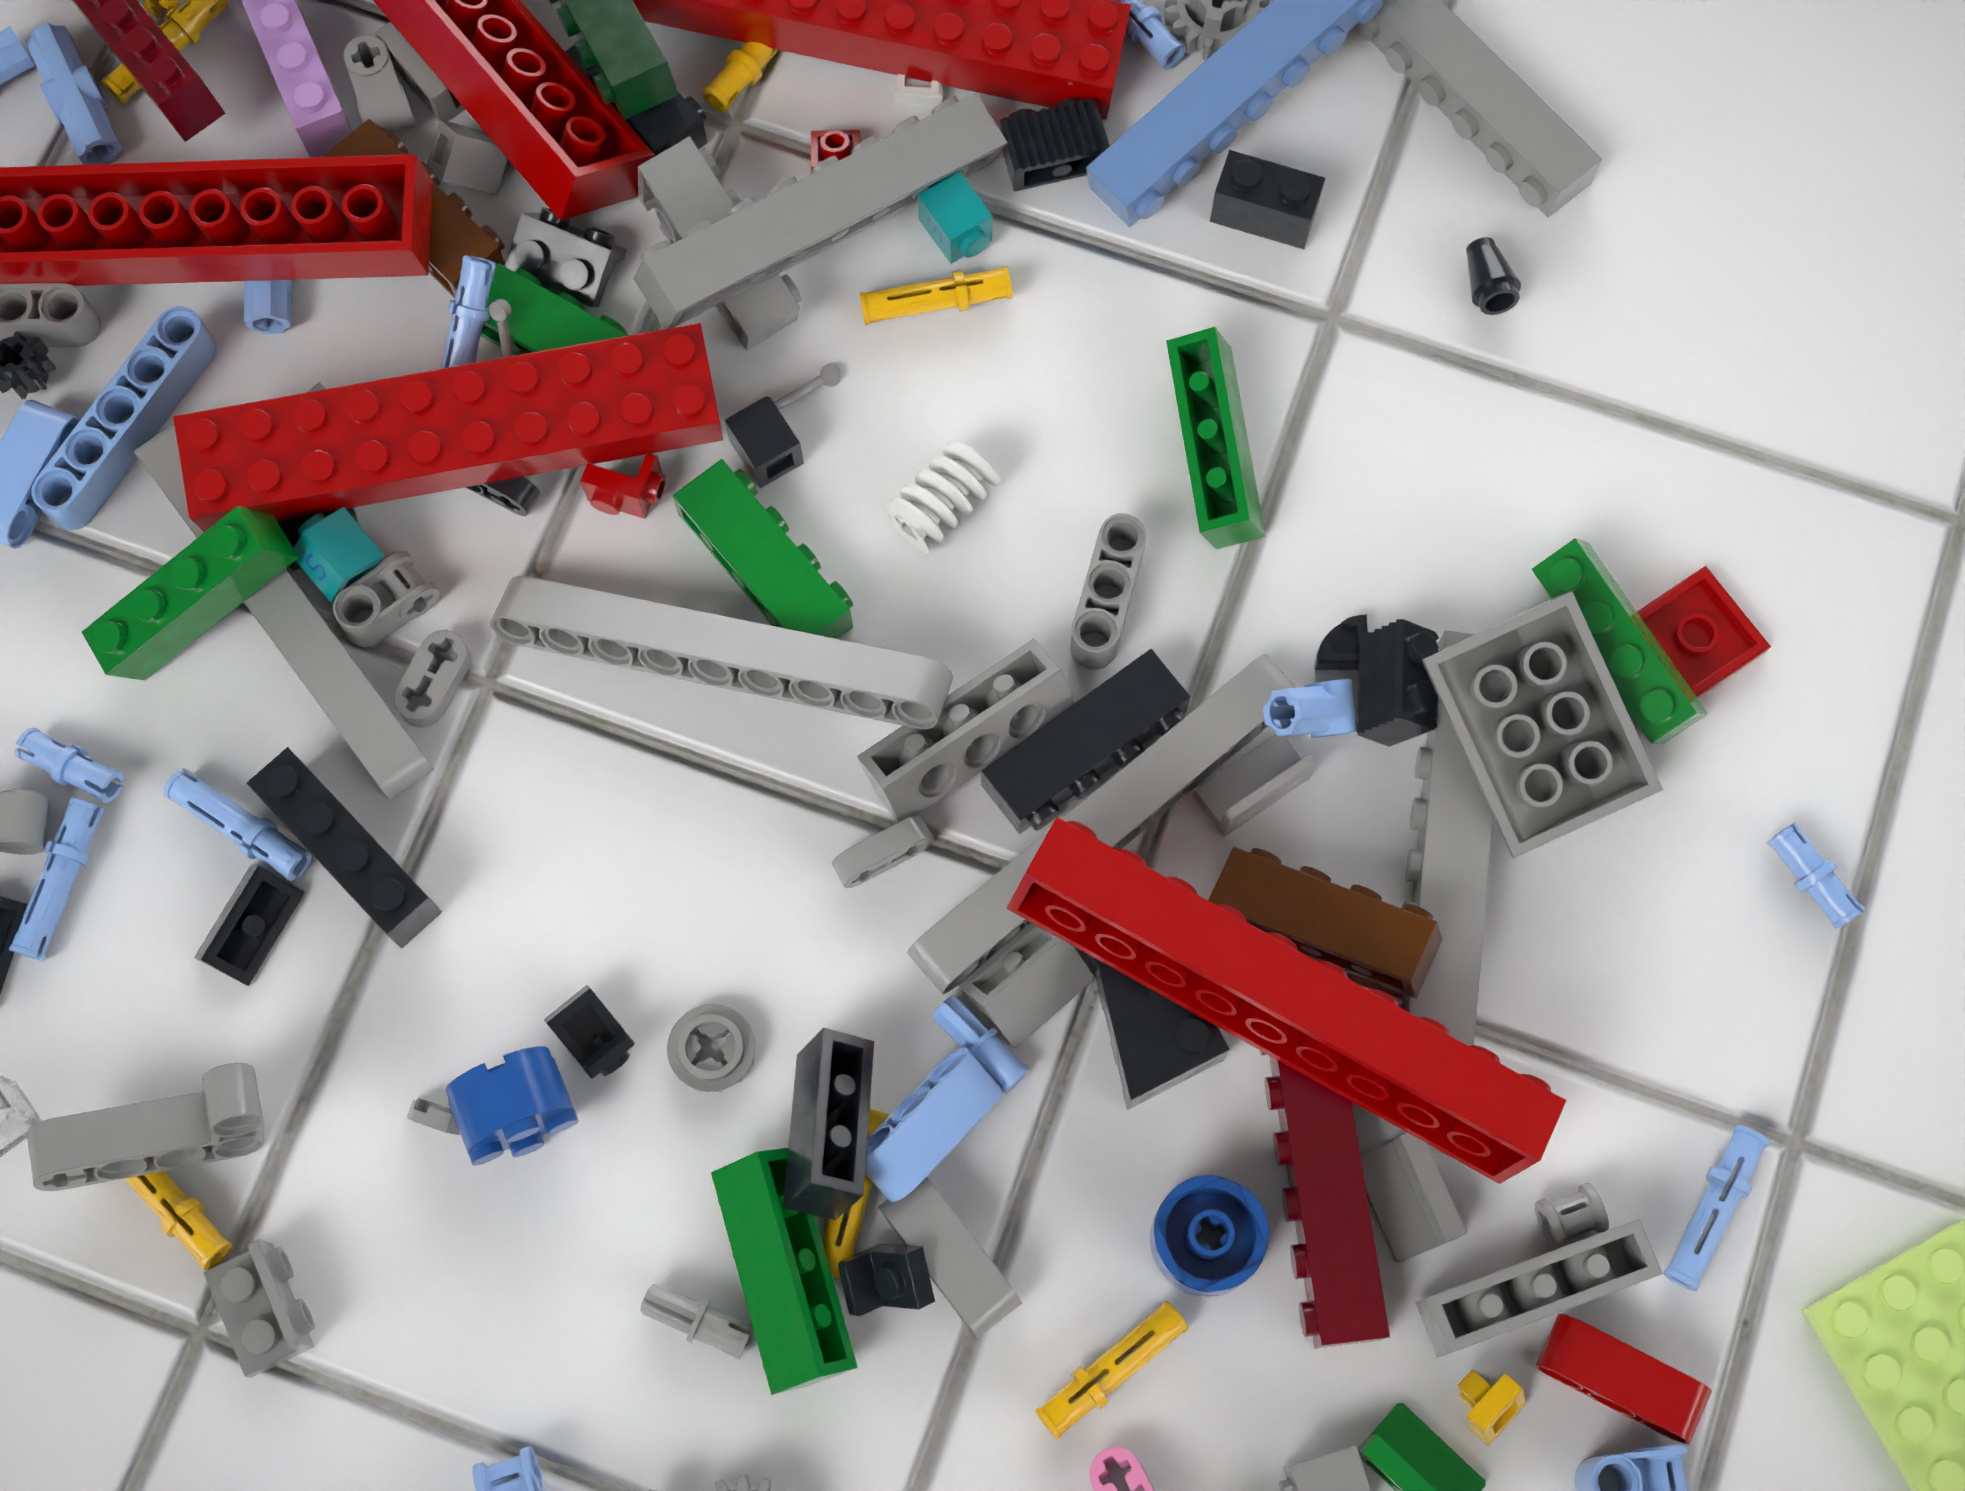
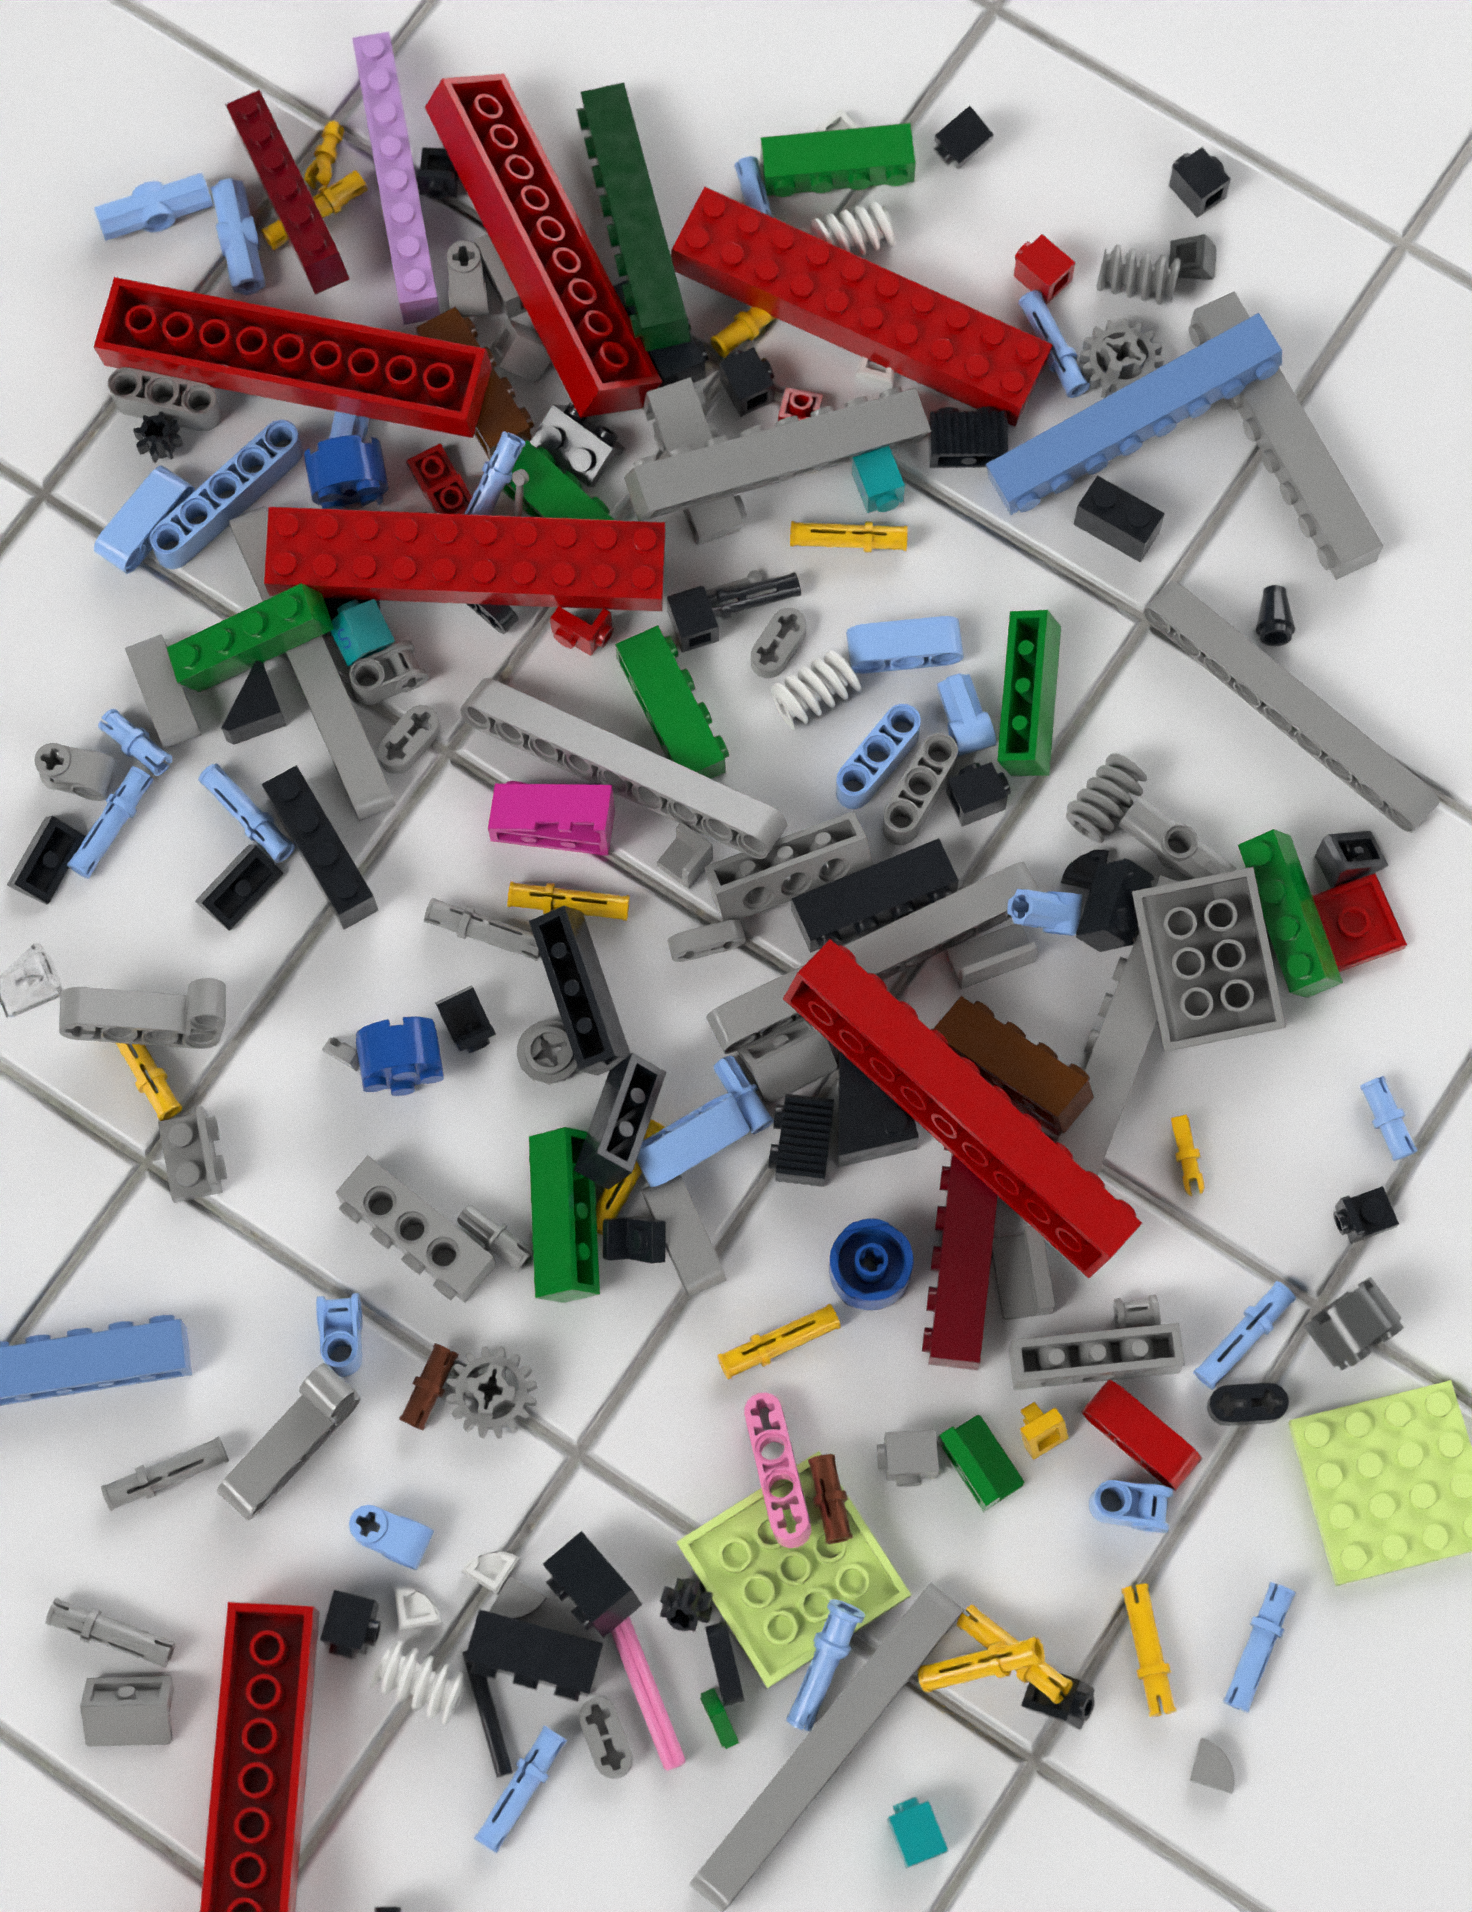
camera: 15 degrees right, 0 degrees up
(95, 699) = (161, 692): none -> light grey beam
(218, 686) = (254, 709): none -> black slope
(273, 352) = (346, 472): none -> blue brick
(397, 339) = (439, 481): none -> red slope
(513, 1286) = (373, 1182): none -> light grey brick
(568, 902) = (476, 926): none -> light grey pin
(644, 735) = (553, 816): none -> dark pink wedge
(688, 841) = (550, 898): none -> yellow pin
(733, 958) = (580, 990): none -> black brick
(761, 133) = (747, 380): none -> black brick
(829, 747) = (686, 856): none -> light grey panel
(872, 376) = (786, 587): none -> black pin
(890, 452) = (785, 647): none -> light grey beam
(1041, 413) = (904, 644): none -> light blue beam
(1047, 539) = (883, 739): none -> light blue beam
(1075, 1086) = (803, 1140): none -> black brick
(1143, 489) = (967, 722): none -> light blue piece
(1182, 579) = (977, 792): none -> black brick
(1344, 546) = (1104, 795): none -> light grey piece
(1421, 578) = (1156, 829): none -> light grey piece
(1544, 383) = (1291, 707): none -> light grey beam
(1574, 983) = (1187, 1153): none -> yellow piece
(1666, 555) = (1349, 857): none -> black slope
(1750, 1312) = (1247, 1393): none -> black beam
(1821, 1008) = (1364, 1215): none -> black bracket
(1860, 1161) = (1353, 1323): none -> dark grey brick

